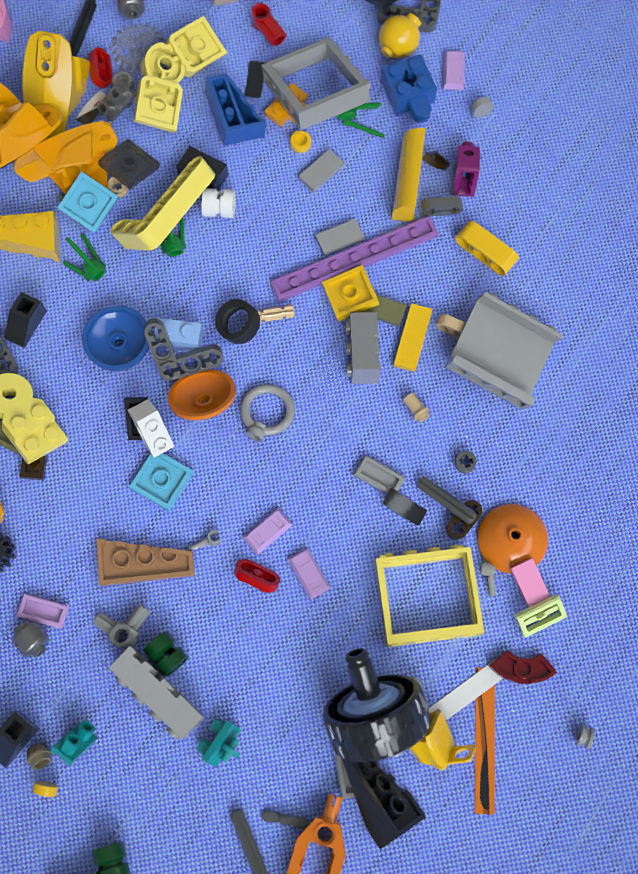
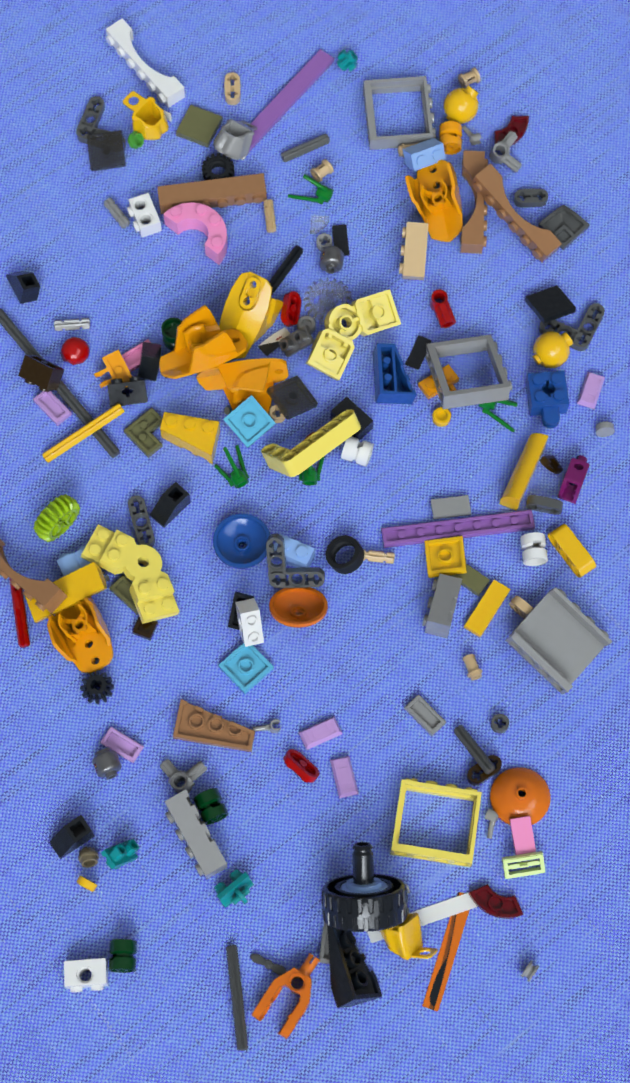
camera: 15 degrees right, 5 degrees down
(258, 430) = (335, 648): light grey piece -> none
(321, 171) = (451, 446): light grey tile -> none
(404, 507) = (438, 745): black sticker -> none
(446, 258) = (533, 547): none -> white wheel

